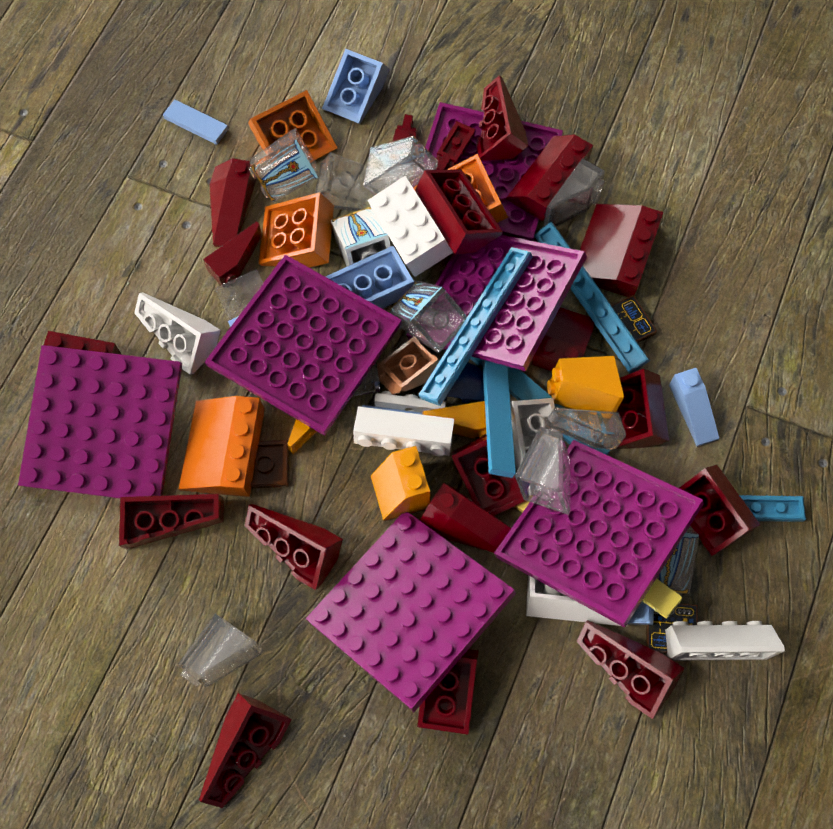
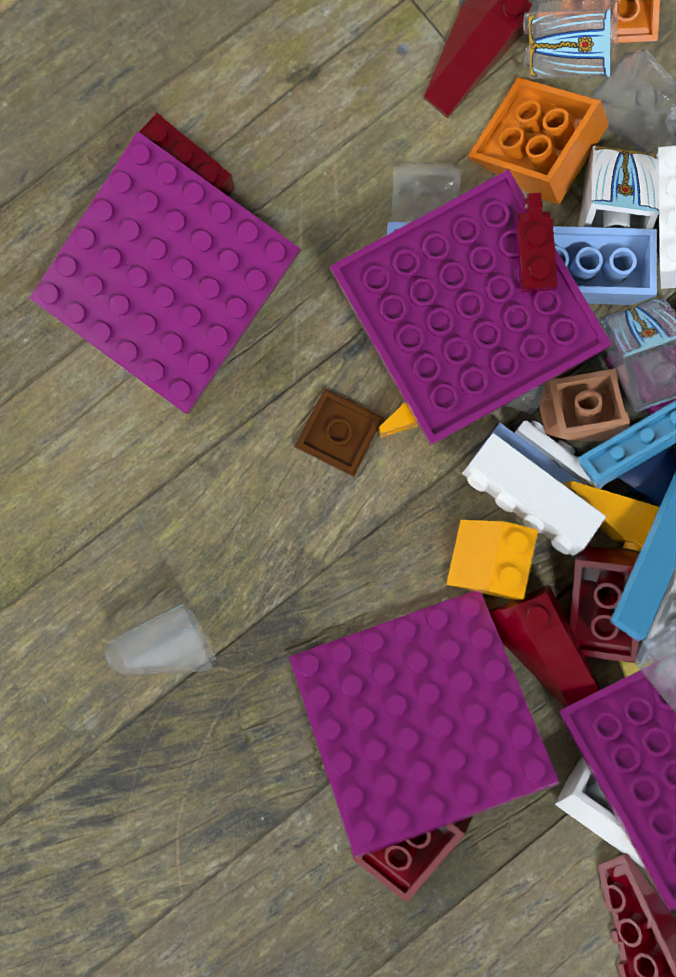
camera: 30 degrees right, 15 degrees up
(161, 517) = (178, 436): dark red wedge -> none
(181, 333) = (323, 202): white wedge -> none
(223, 446) = (299, 382): orange slope -> none
(231, 258) = (435, 130): dark red slope -> none
(244, 739) = (146, 759): dark red wedge -> none
(301, 545) = (331, 565): dark red wedge -> none
(325, 288) = (536, 247): none -> dark red hinge

